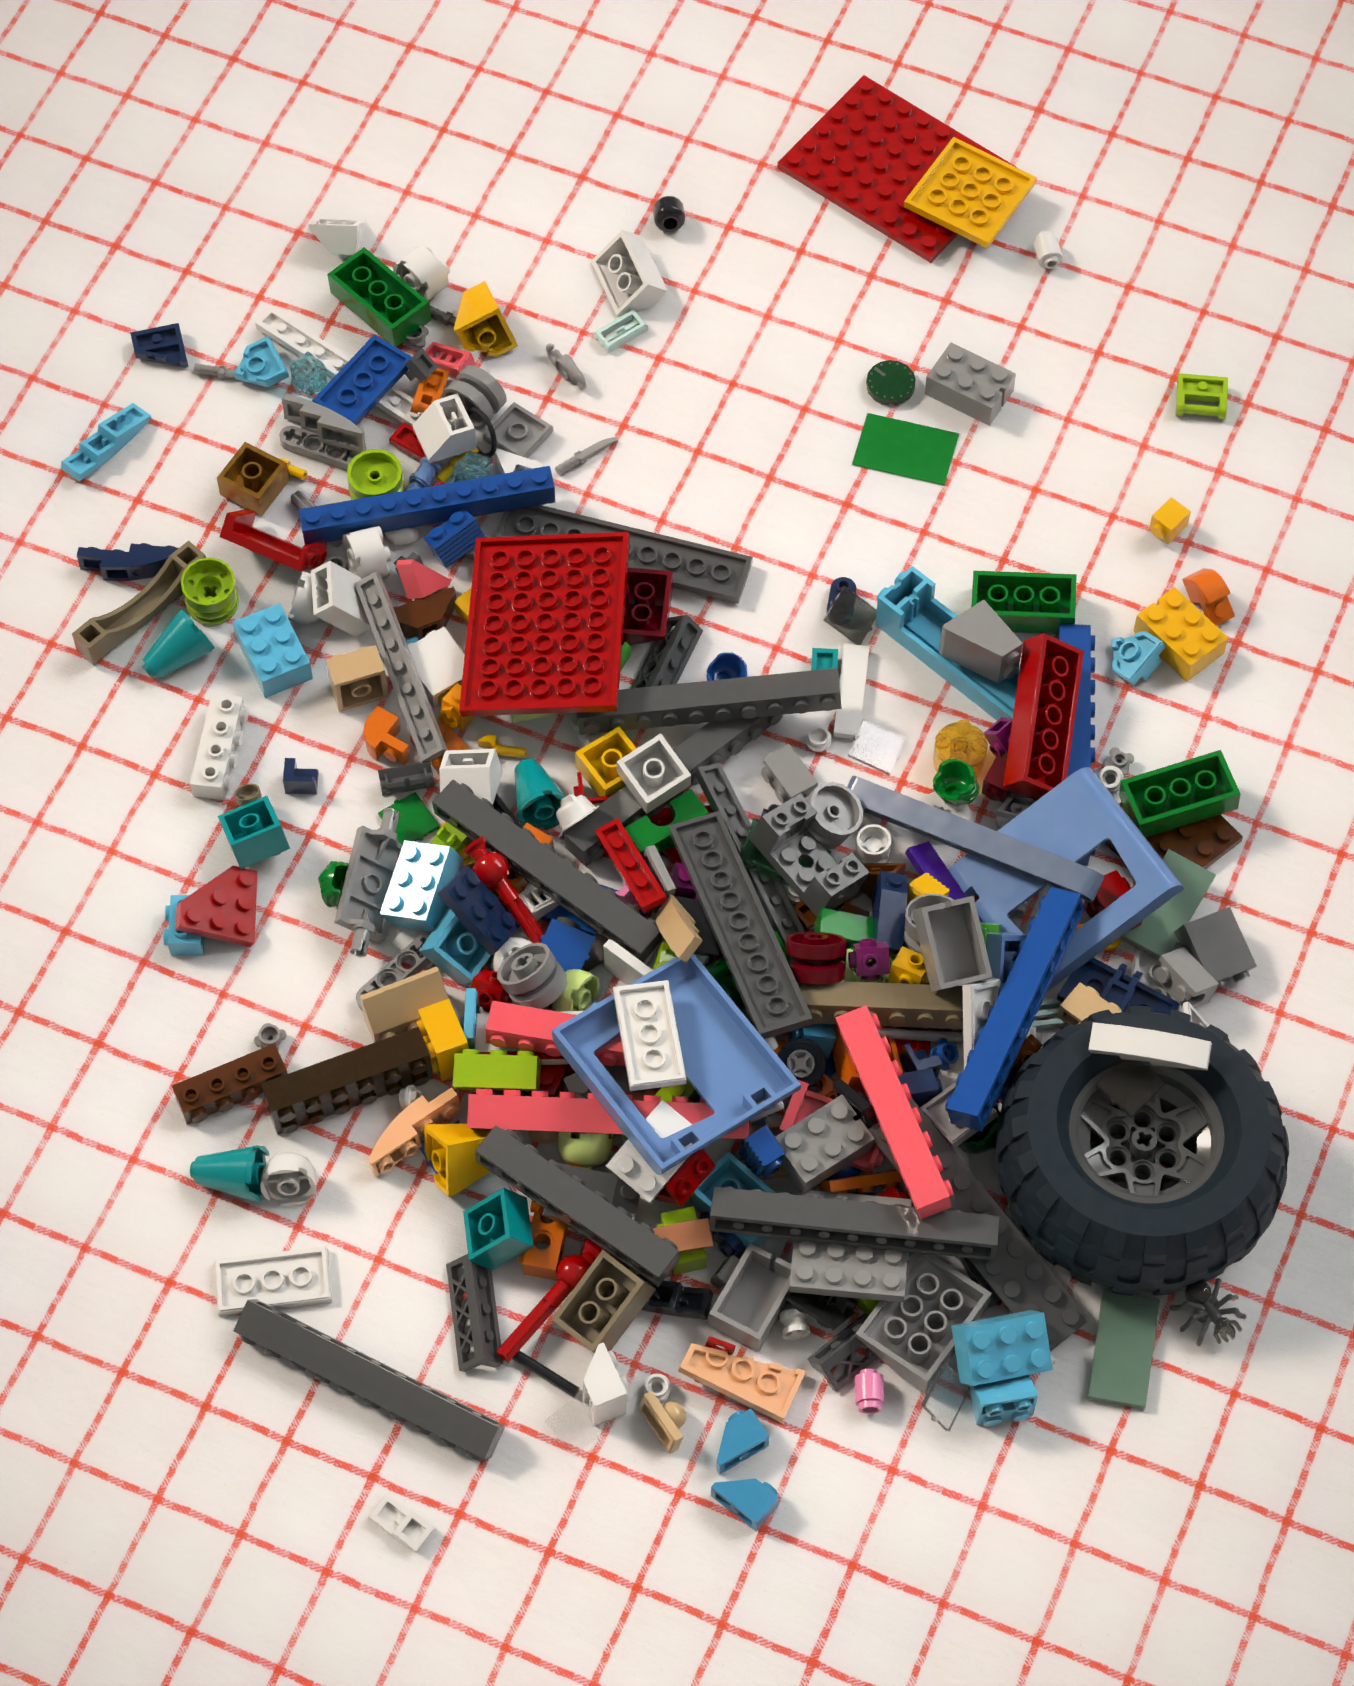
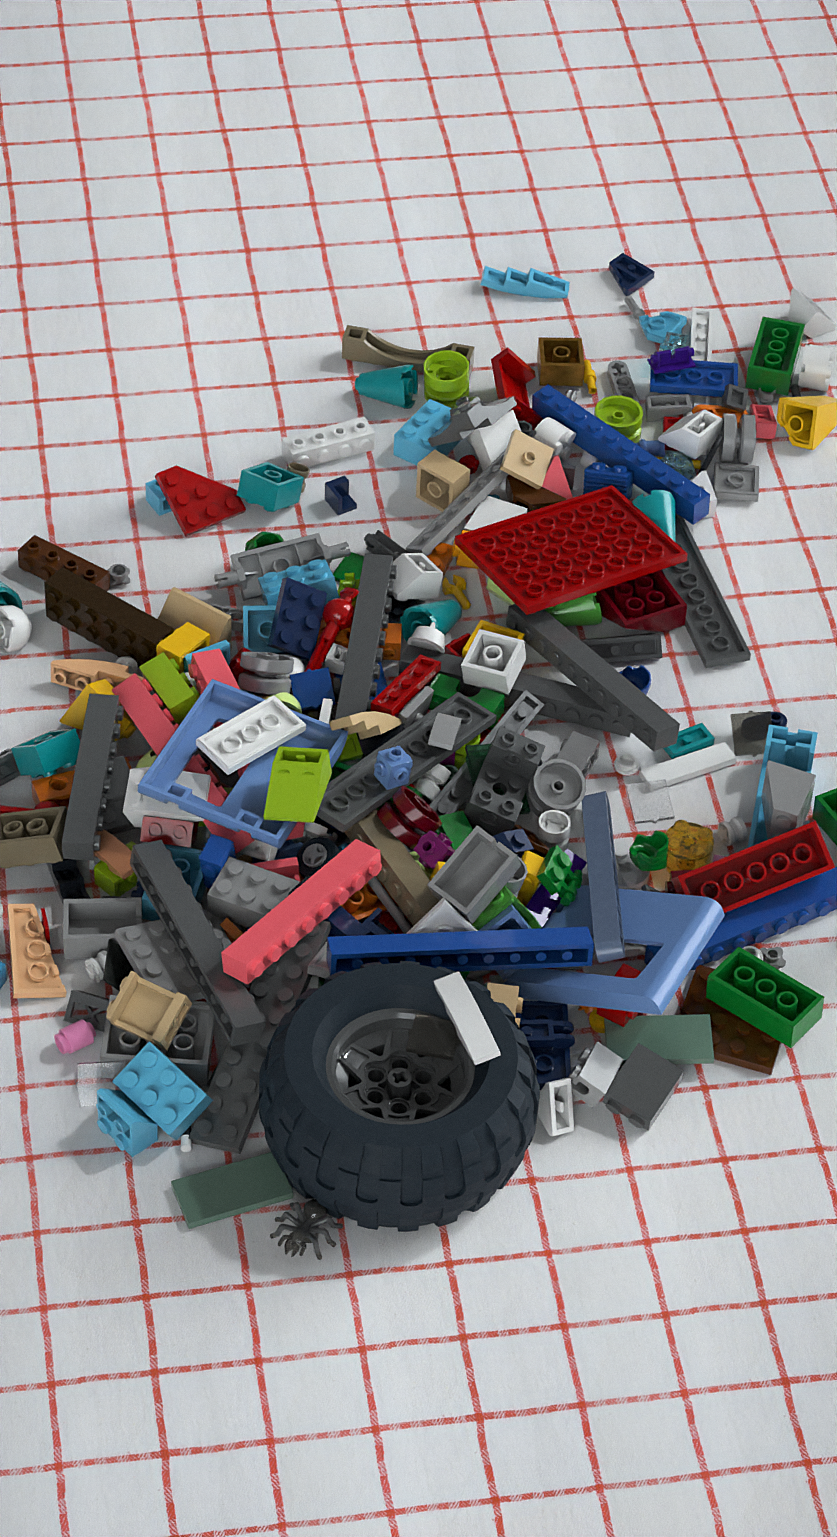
camera: 55 degrees right, 15 degrees down
(117, 565) = (430, 331): dark blue slope -> none
(312, 604) = (470, 415): none -> dark grey slope
(329, 425) = (639, 373): light grey slope -> none
(334, 641) = (470, 462): none -> red plate
(338, 386) = (665, 362): none -> dark purple hinge
(374, 440) = (666, 405): none -> light grey slope
(380, 735) = (410, 520): orange brick -> none
(394, 588) = (526, 459): none -> tan plate
(543, 520) = (660, 509): none -> teal cone
(566, 366) = (818, 481): light grey piece -> none
(581, 456) = (751, 526): light grey piece -> none
(731, 865) = (444, 731): none -> light grey slope
(753, 1031) = (297, 784): none -> lime slope
(766, 935) = (393, 767): none -> medium blue brick
(913, 1308) = (148, 1010): none -> tan panel
(948, 872) = (558, 877): none -> green plate
(957, 703) = (732, 831): none -> white wheel

